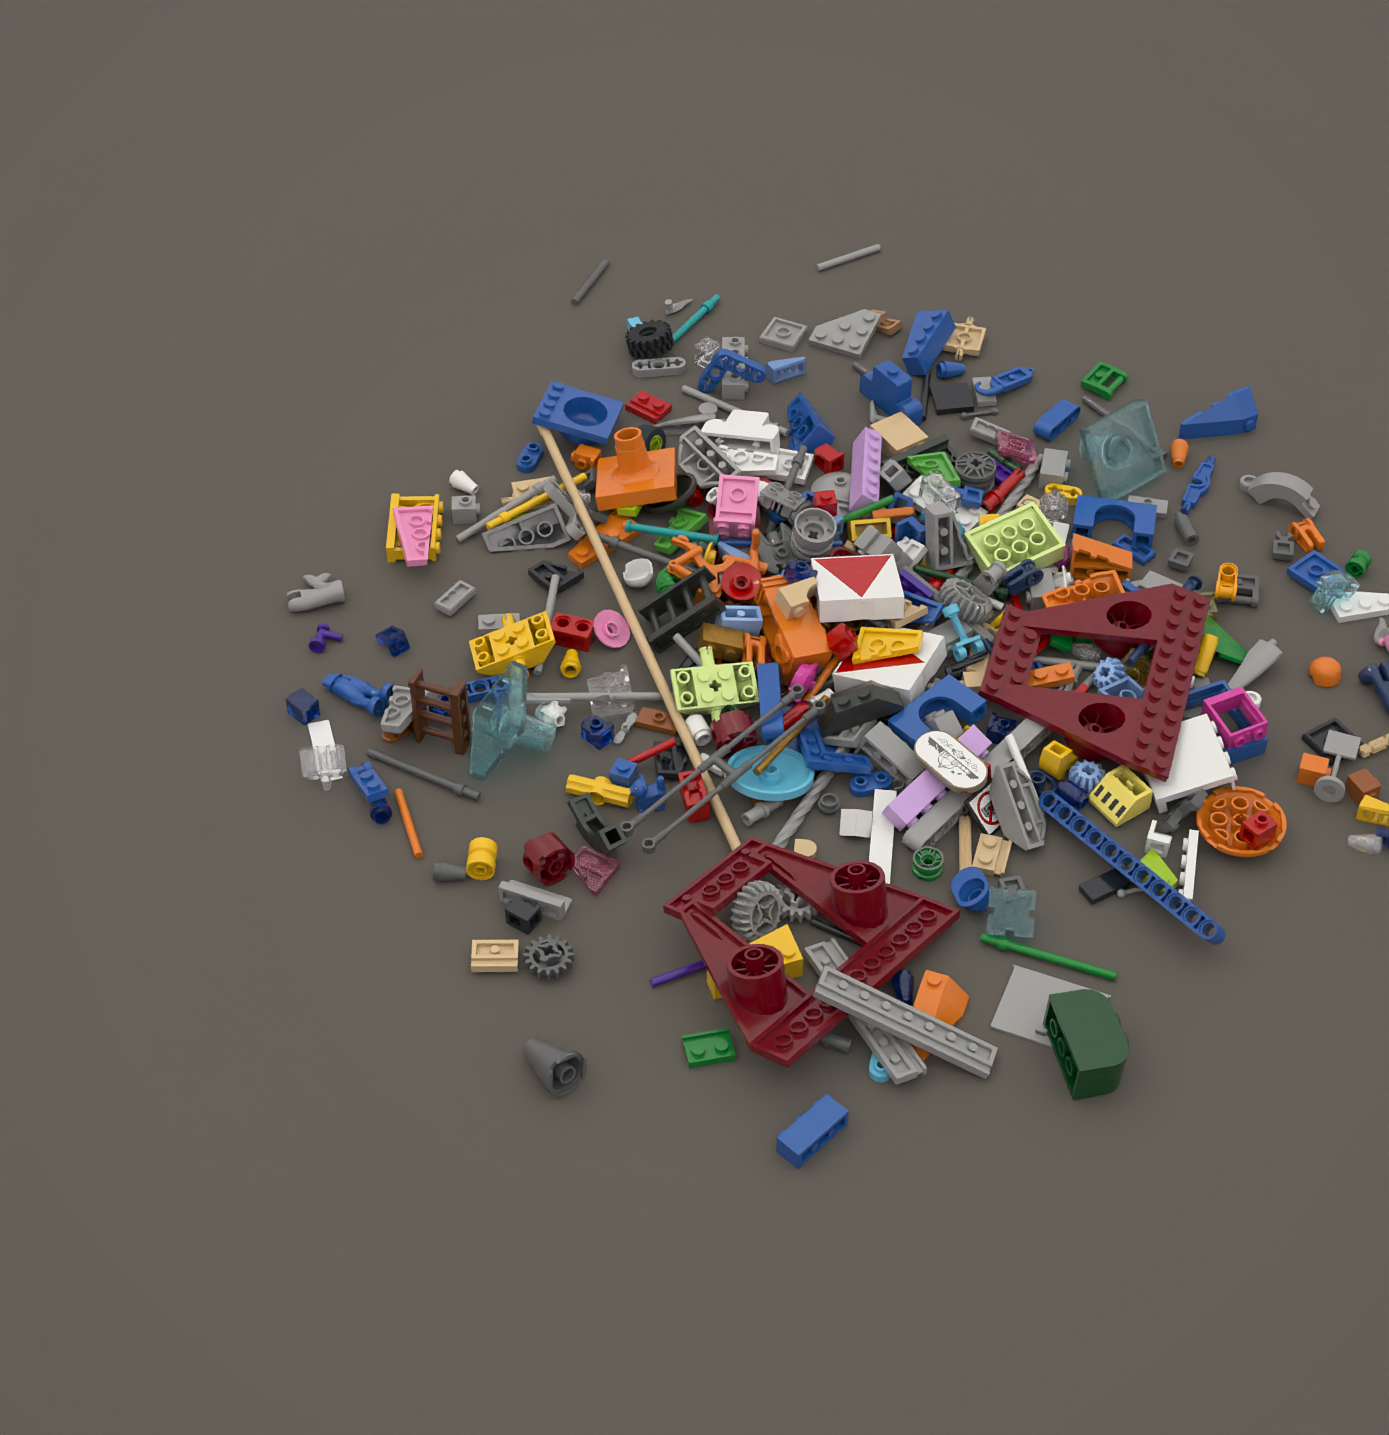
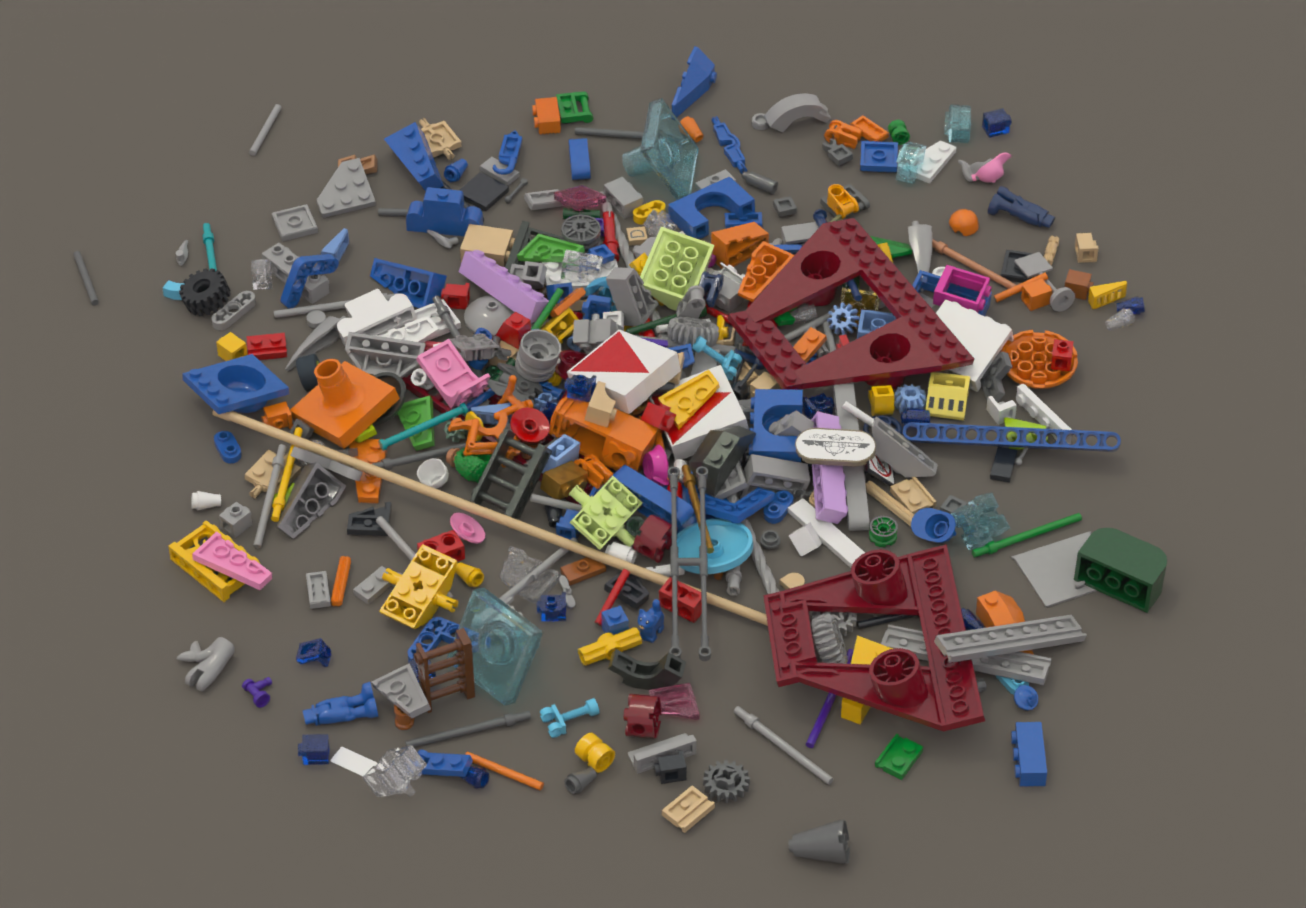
camera: 45 degrees left, 0 degrees up
(479, 603) = (340, 581): none -> orange axle
(494, 809) = (559, 727): none -> medium azure bar
(619, 389) = (231, 347): none -> yellow brick
(630, 931) = (753, 722): none -> light grey bar
(869, 1083) = (1025, 697): none -> blue hat
(1072, 372) = (547, 115): none -> orange brick
(1278, 680) = (942, 248): none -> nougat bar
(1293, 753) = (1018, 288): none -> orange bar
(1335, 546) = (870, 130): none -> orange plate

